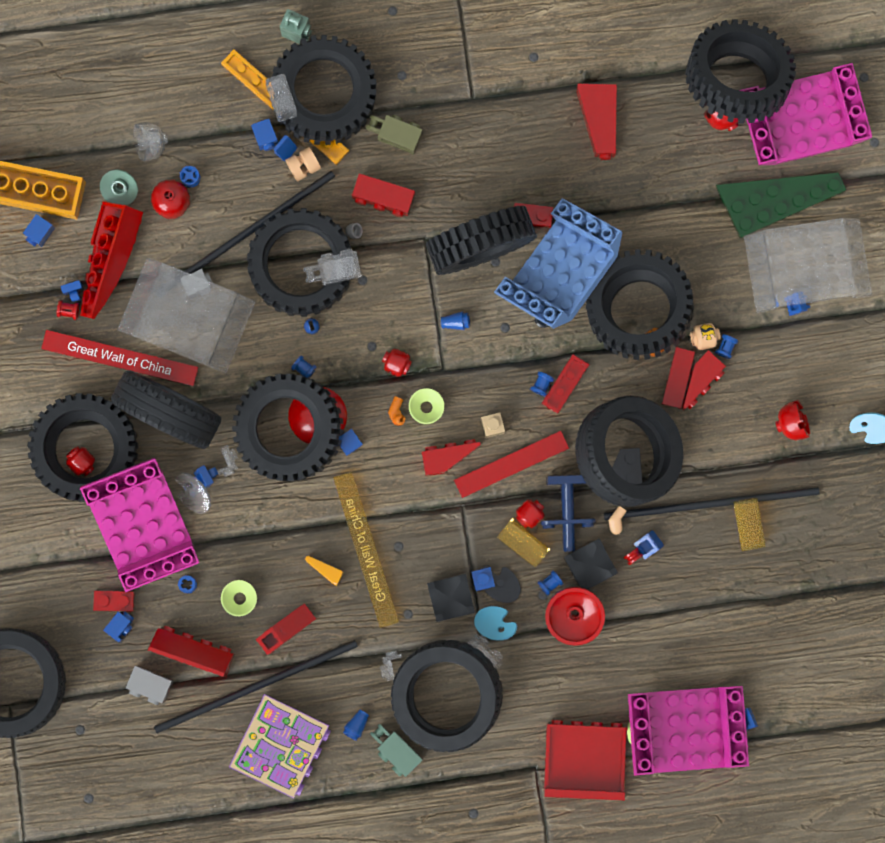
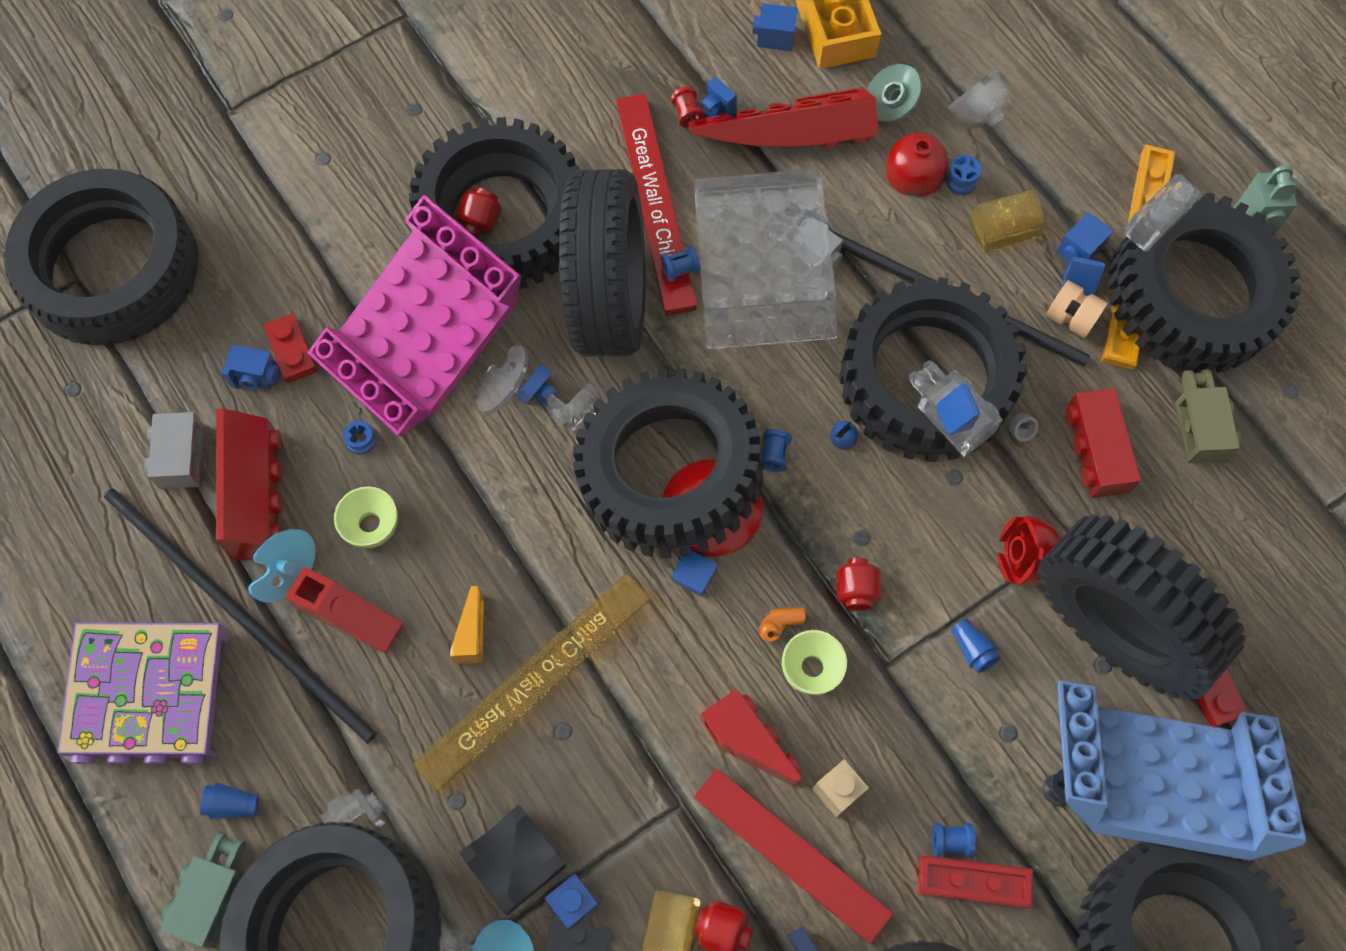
camera: 65 degrees right, 15 degrees down
(171, 364) = (680, 263): none -> blue bush
(231, 169) = (1007, 220): none -> clear yellow brick
(241, 648) = (284, 557): none -> medium azure piece
(342, 272) = (958, 410): none -> blue slope
(420, 266) = (1025, 546): none -> red cylinder

